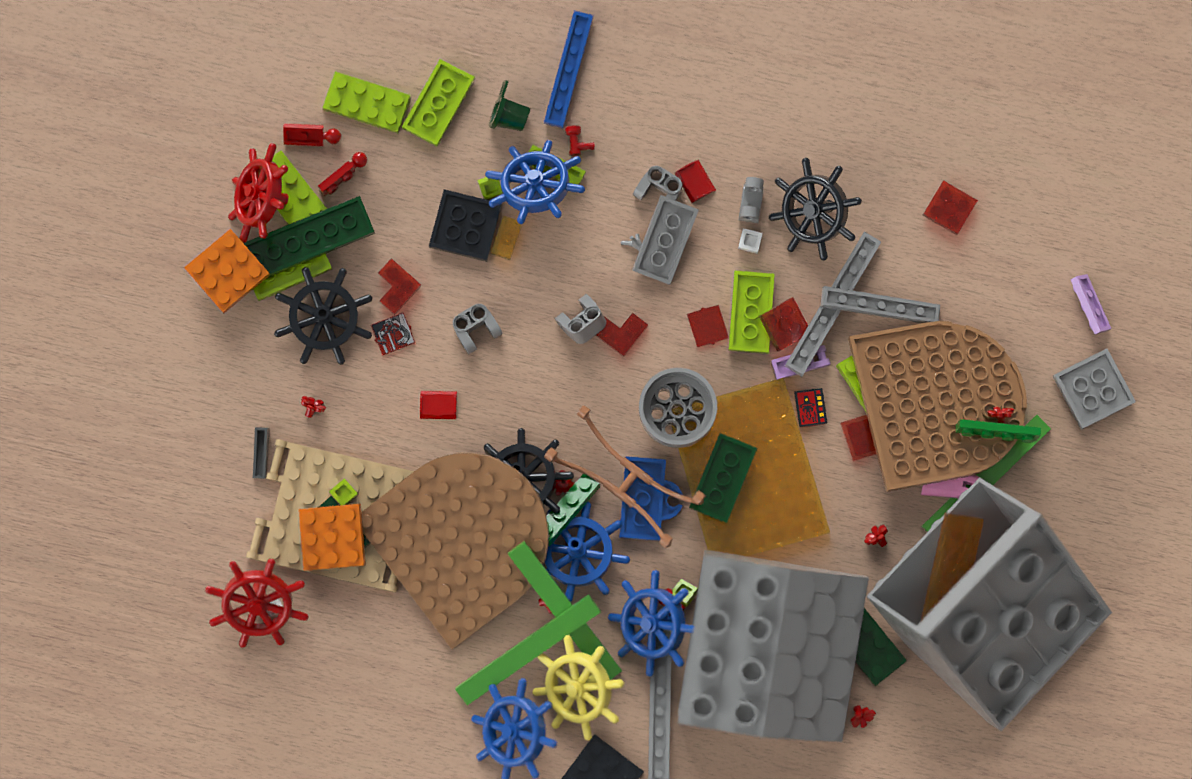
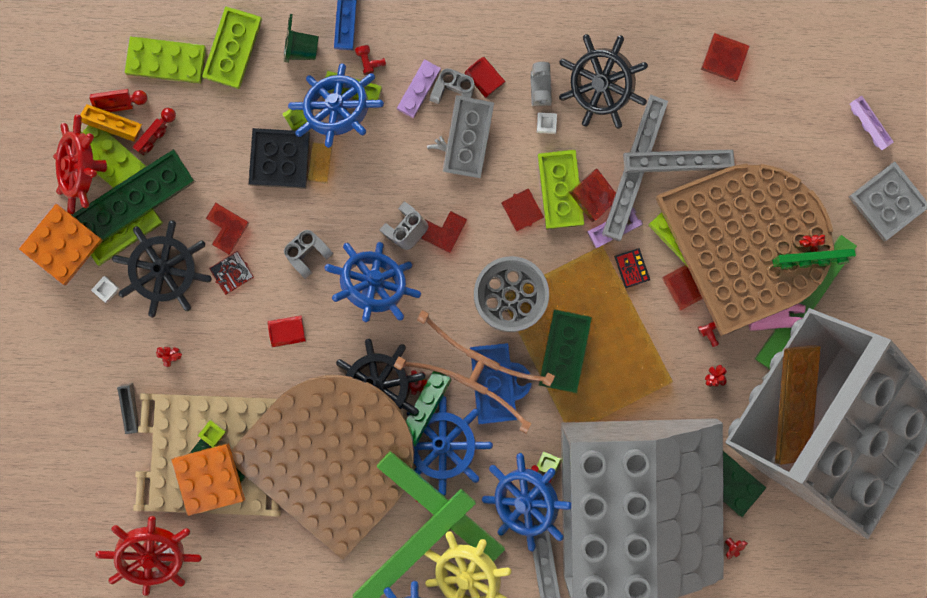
camera: 15 degrees left, 5 degrees up
(260, 326) = (105, 289): none -> white plate
(300, 157) = (110, 122): none -> light orange plate
(538, 368) = (372, 281): none -> blue piece
(623, 180) = (418, 88): none -> lavender plate
(876, 487) = (707, 330): none -> red piece

